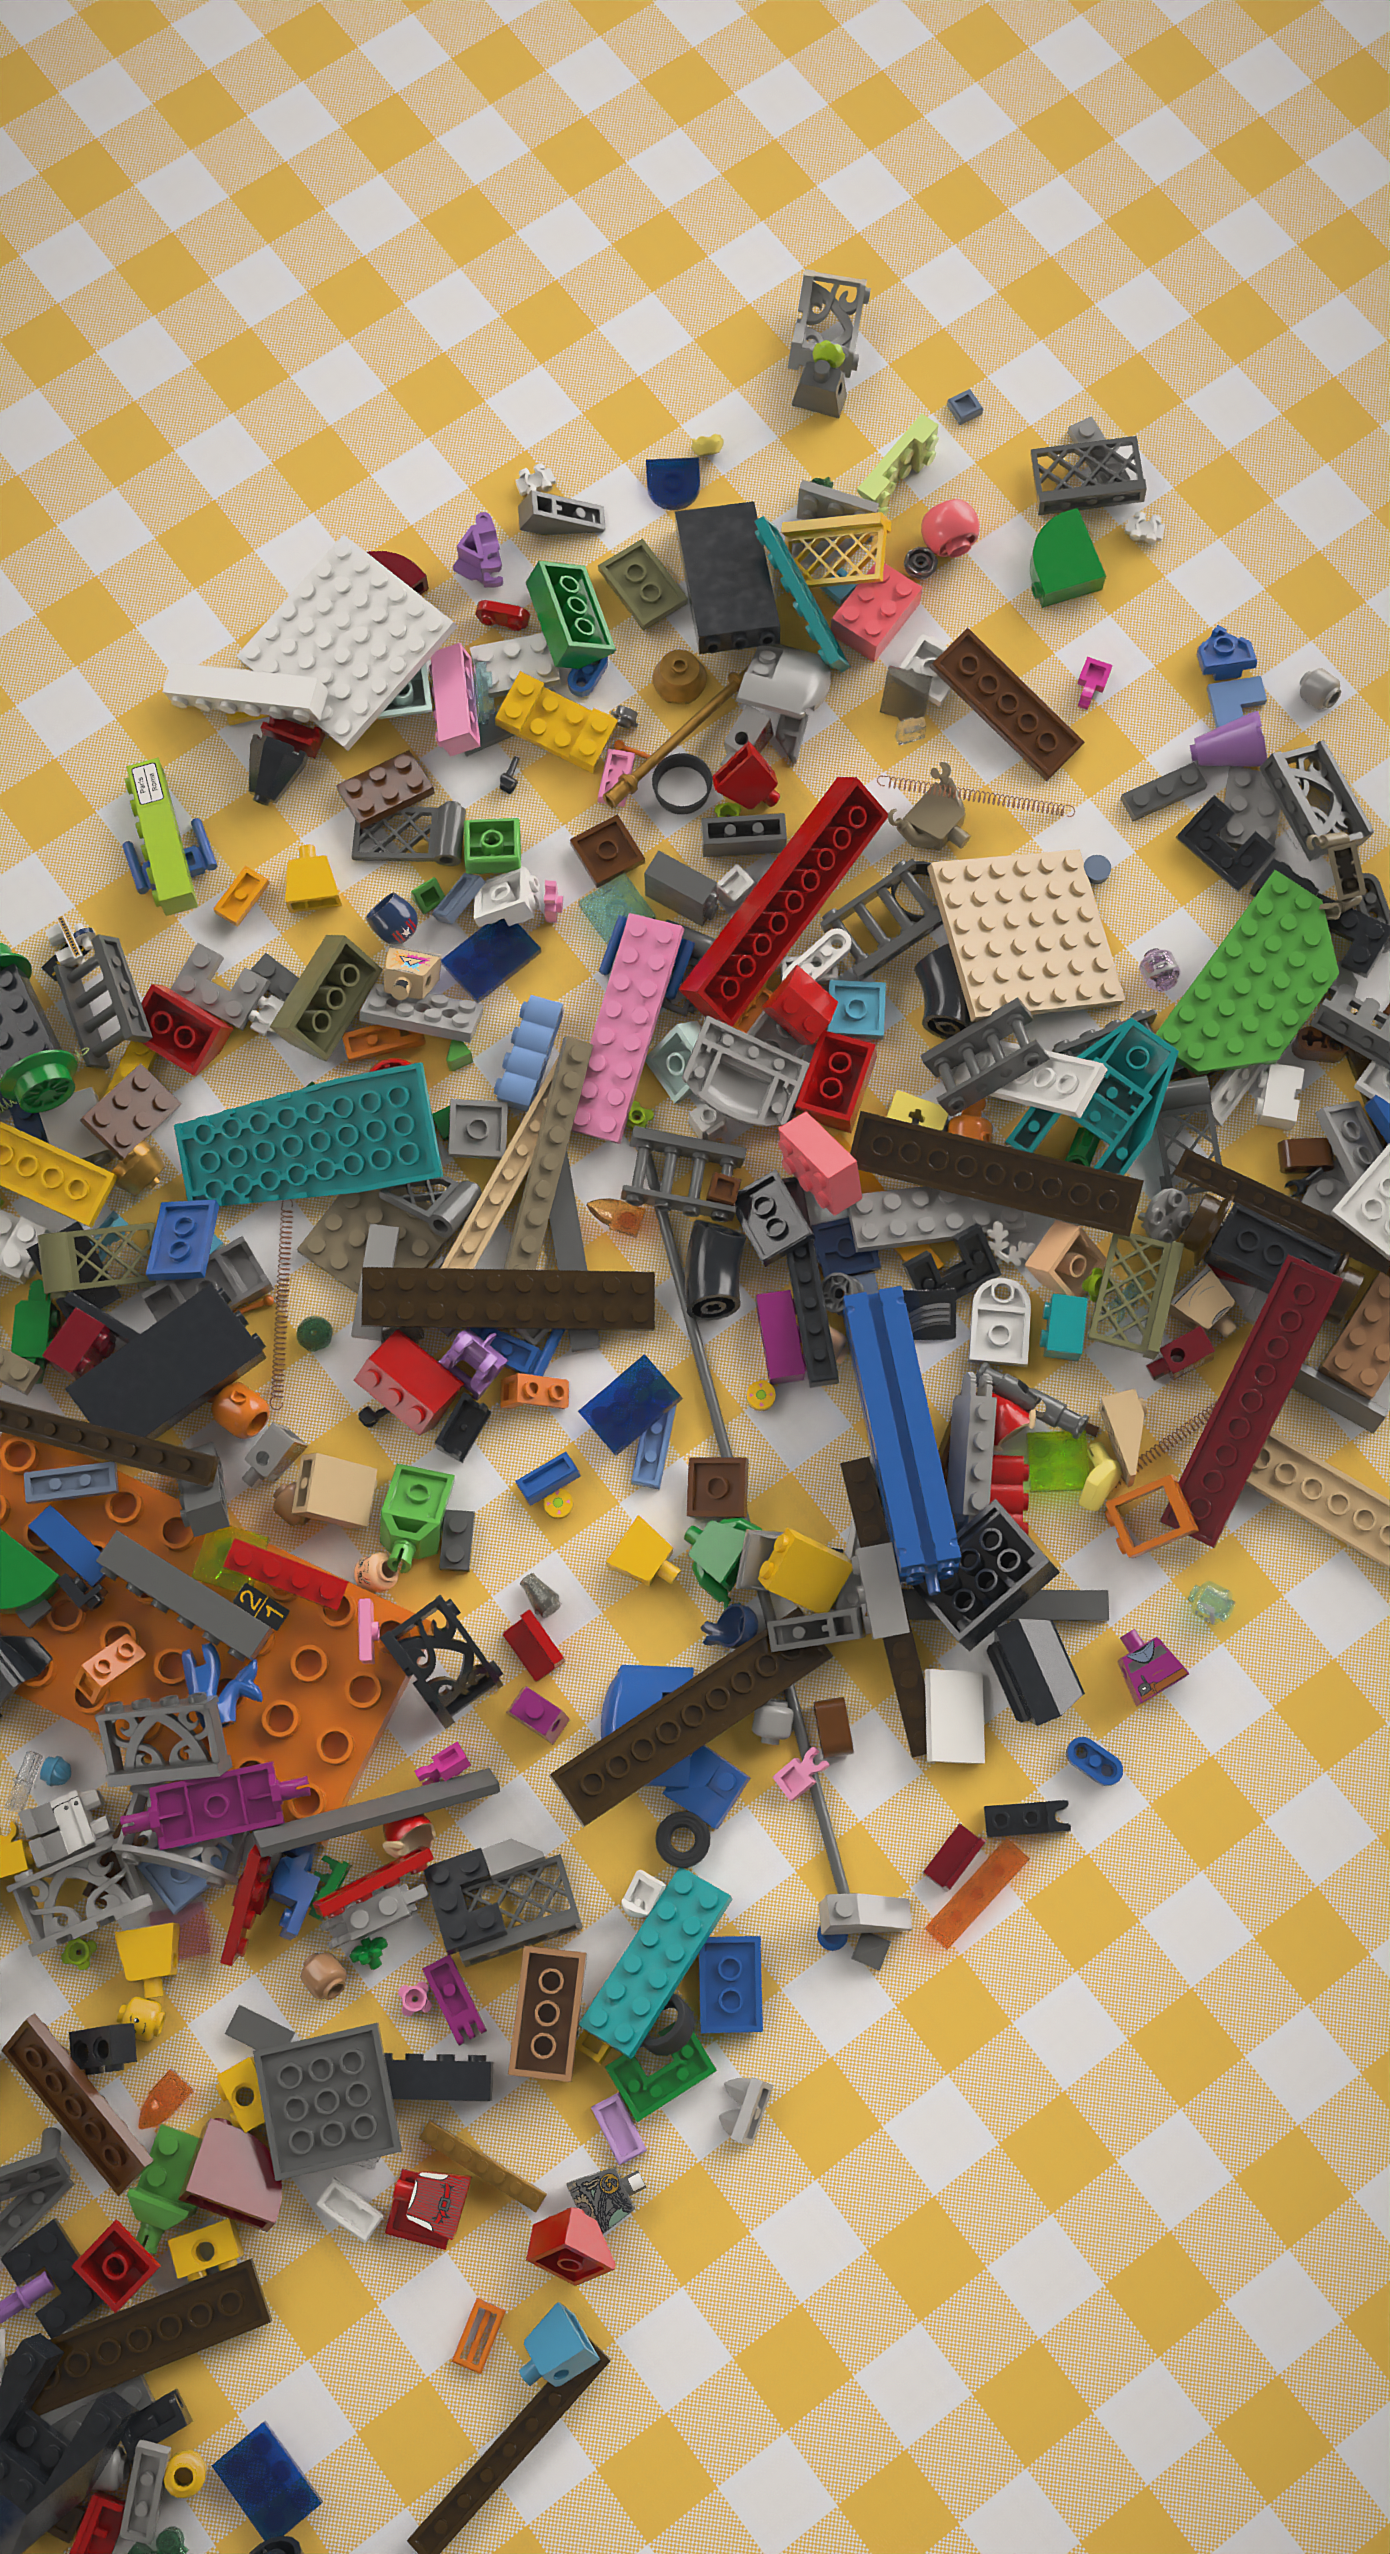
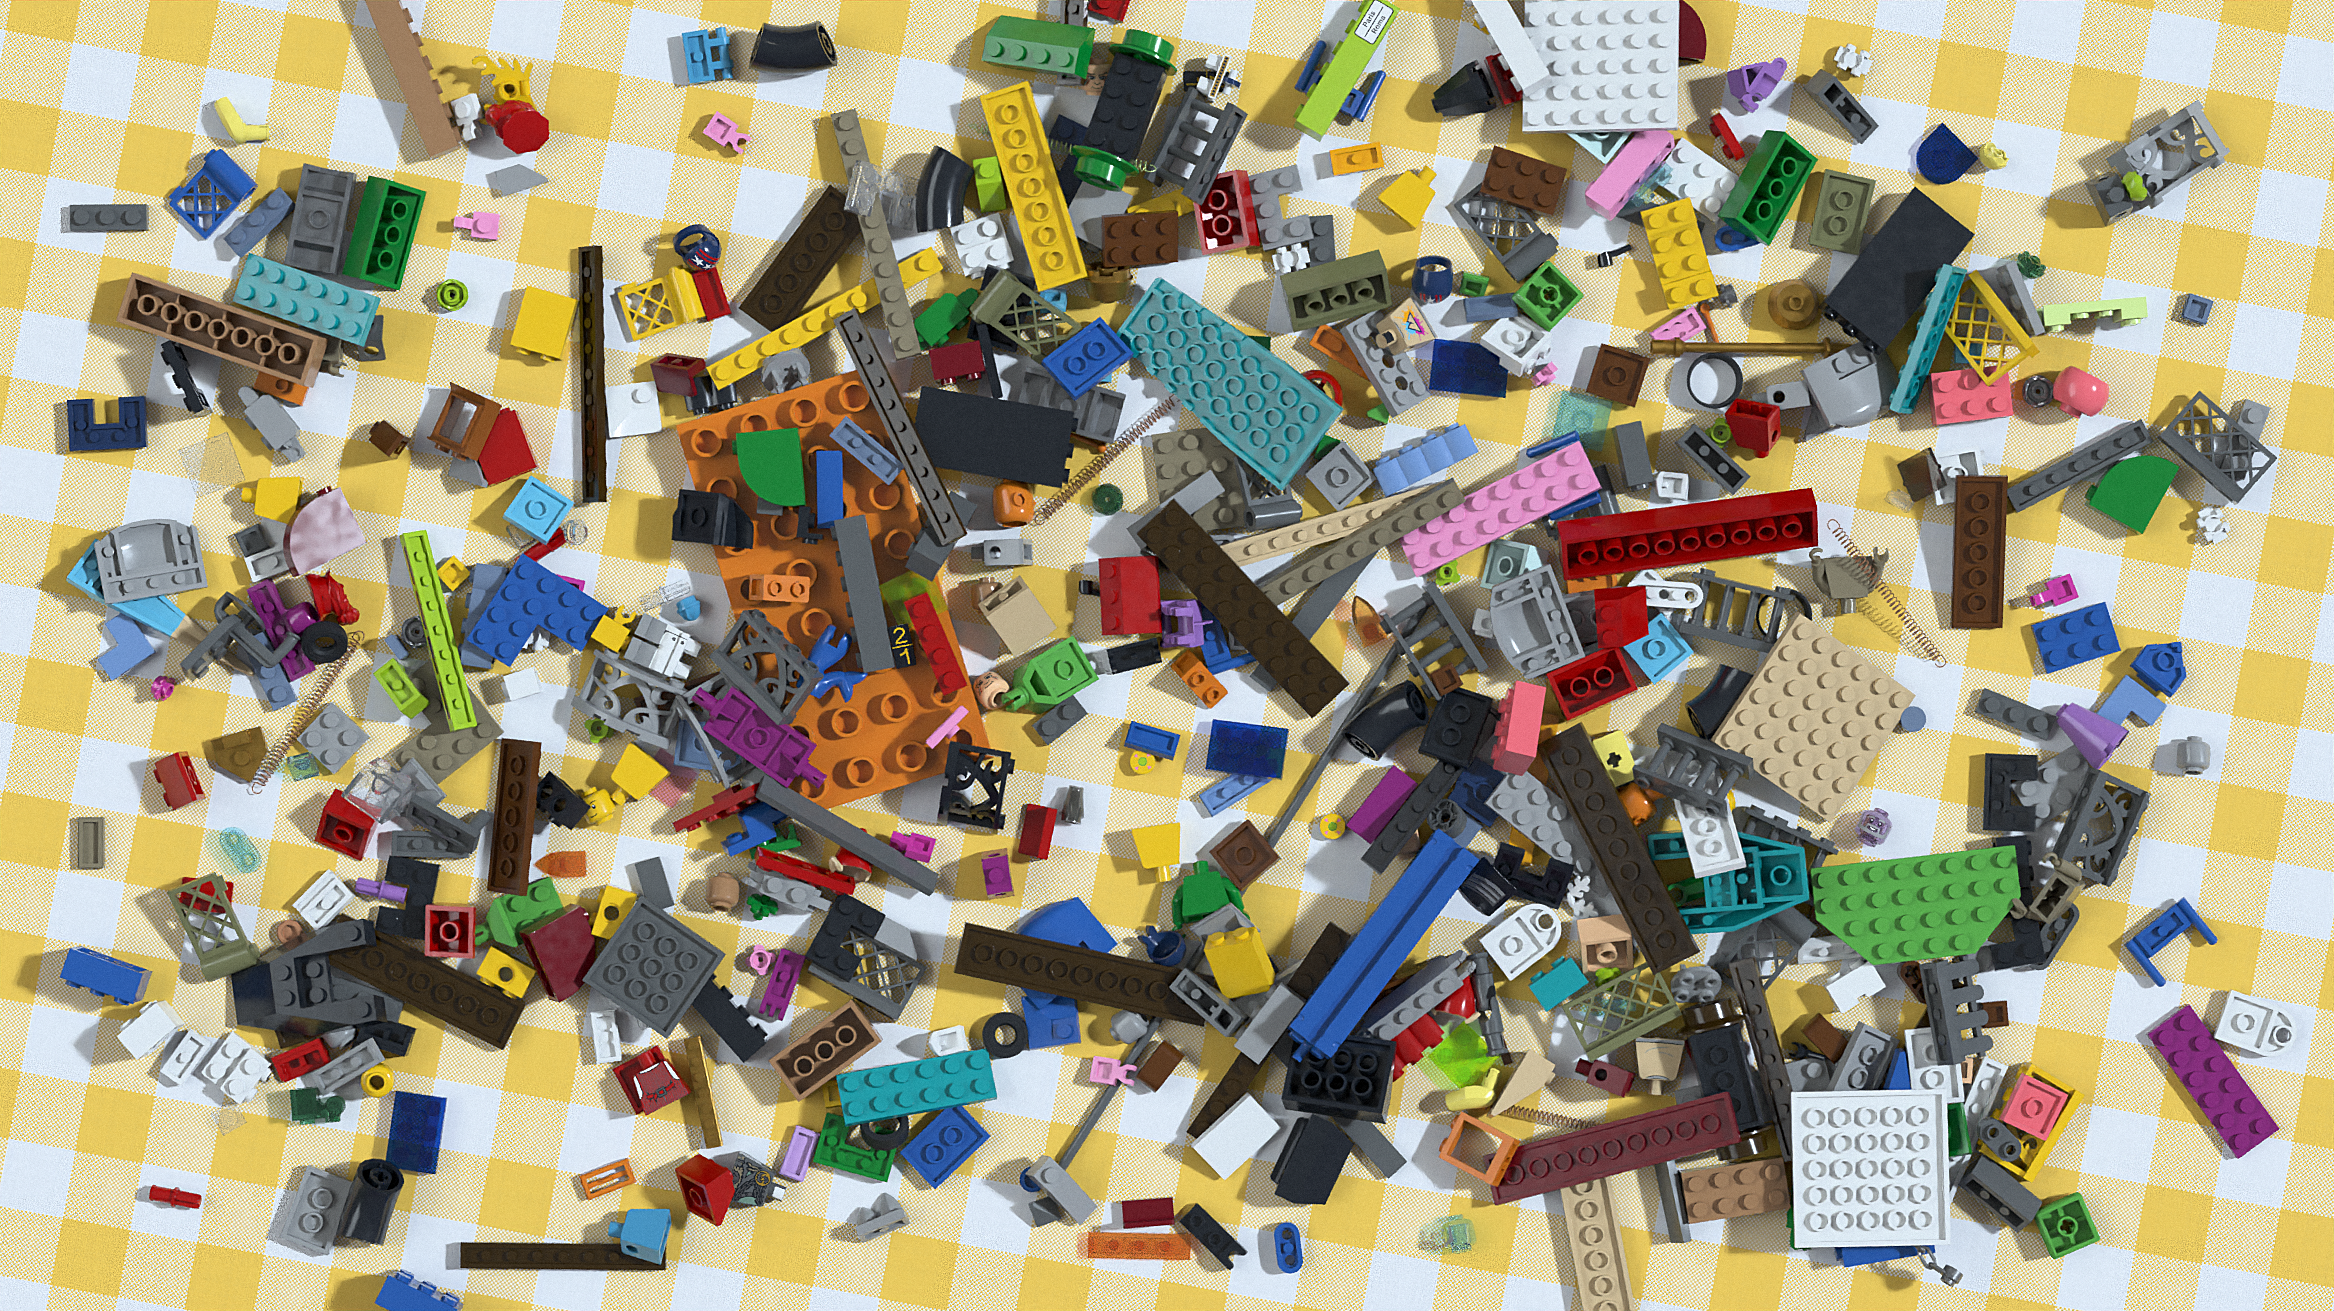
camera: 50 degrees right, 15 degrees up
(1008, 580) = (2078, 466): none -> dark grey plate
(1142, 698) = (2075, 637): none -> blue plate
(1148, 1667) = (1379, 1230): magenta torso -> none

